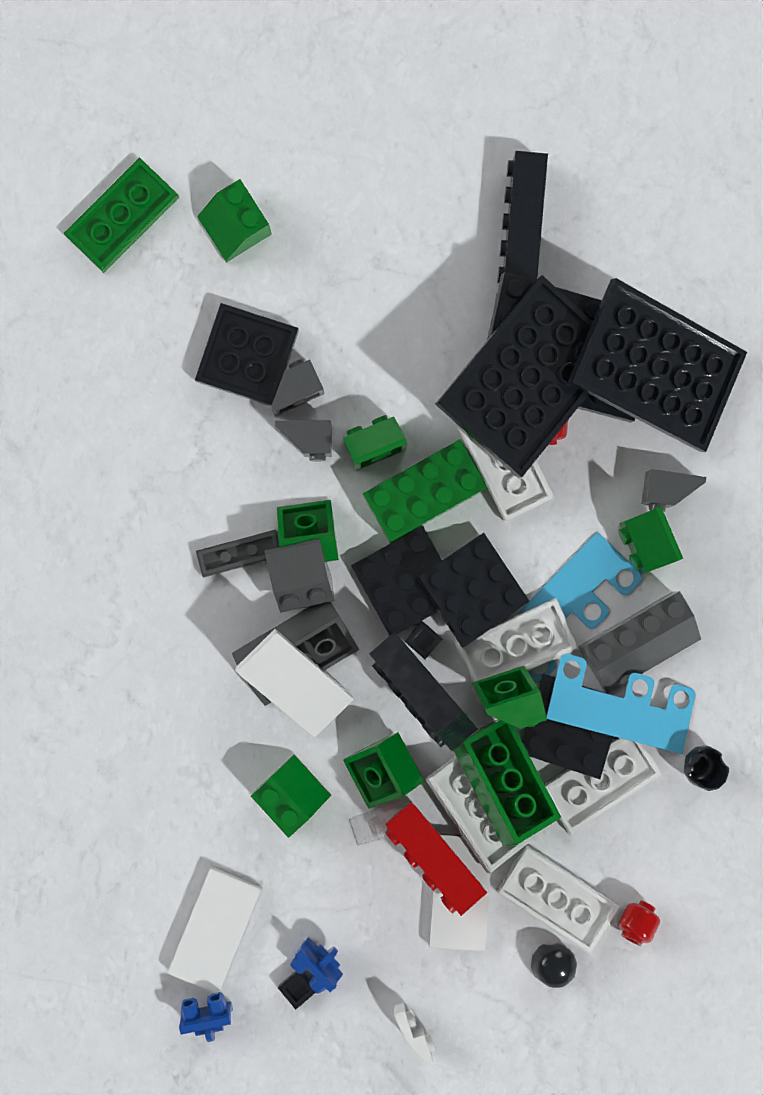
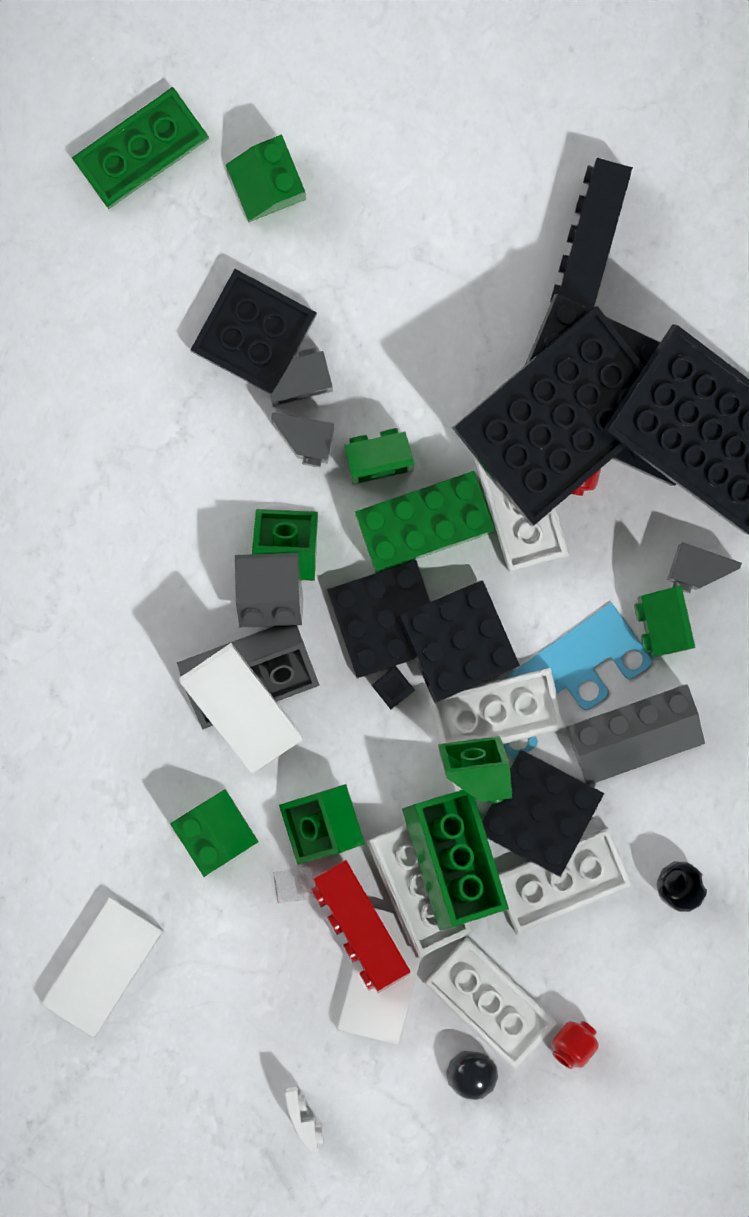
camera: 10 degrees right, 0 degrees up
(205, 1019) = (75, 1063): blue hips -> none
(236, 553) = (201, 553): dark grey tile -> none
(296, 989) = (182, 1048): black tile -> none
(319, 963) = (213, 1024): blue hips -> none
(421, 693) = (379, 743): black brick -> none
(620, 717) = (598, 813): medium azure piece -> none

